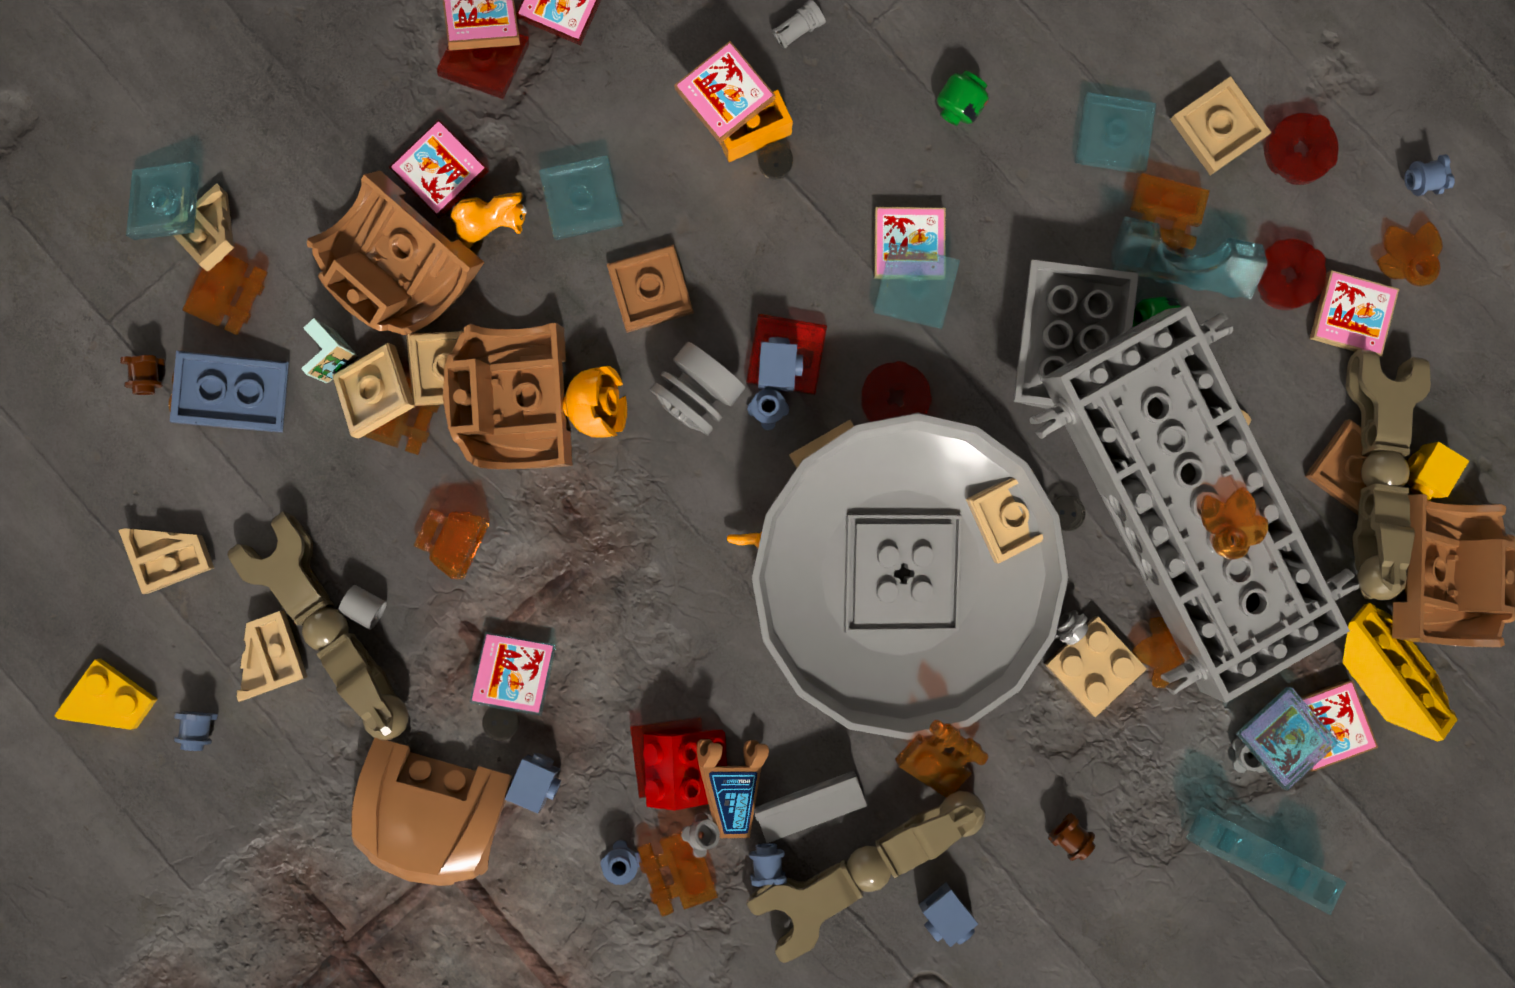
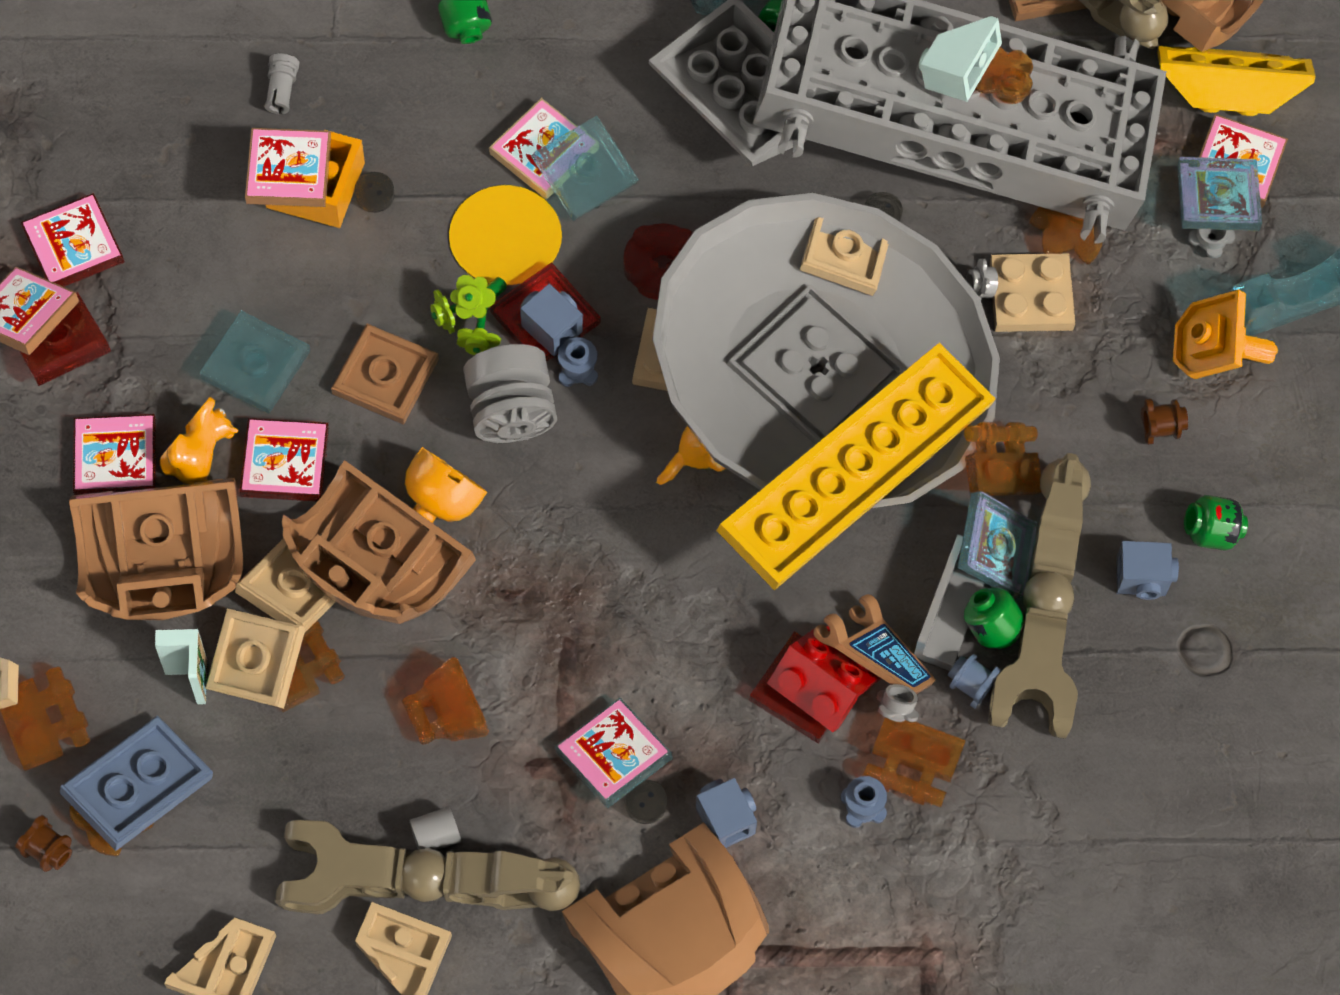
camera: 50 degrees left, 20 degrees down
(531, 280) = (284, 459): none -> tile
(742, 304) = (470, 300): none -> lime plant
(820, 846) = (994, 618): none -> green head
(823, 274) = (505, 234): none -> yellow sticker
(835, 676) = (855, 466): none -> yellow plate
(876, 805) = (997, 544): none -> clear light blue tile
(1025, 936) = (1215, 522): none -> green head
(1166, 826) = (1214, 339): none -> light orange piece
(1214, 491) = (960, 58): none -> light aqua slope

